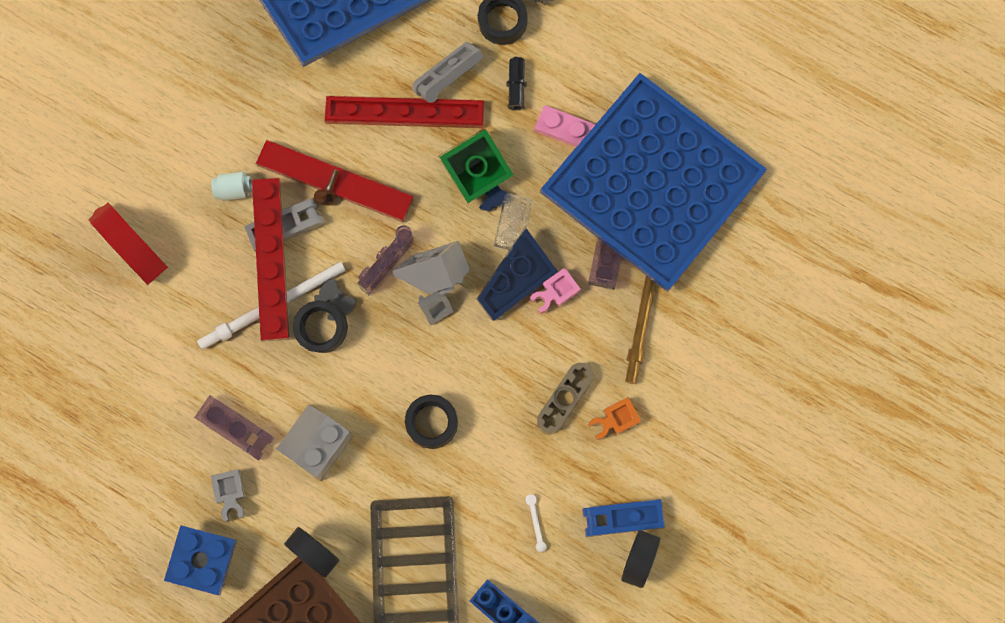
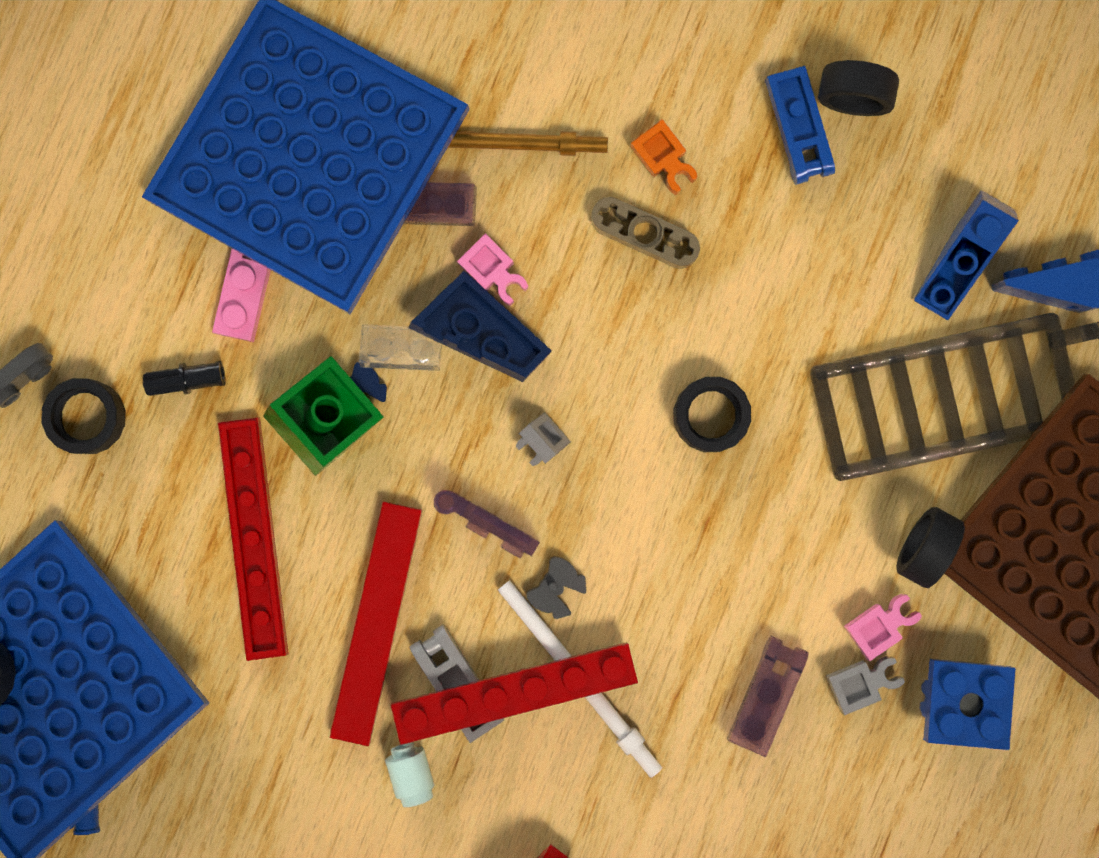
camera: 105 degrees left, 10 degrees up
(264, 509) = (877, 629): none -> bright pink plate
(300, 321) = (631, 609): black tyre -> none
(315, 442) = (770, 577): light grey slope -> none
(327, 196) = (402, 629): reddish brown hand -> none
(434, 269) = (493, 447): light grey slope -> none
(446, 71) = (182, 484): light grey plate -> none
(531, 501) = (795, 257): white hinge -> none

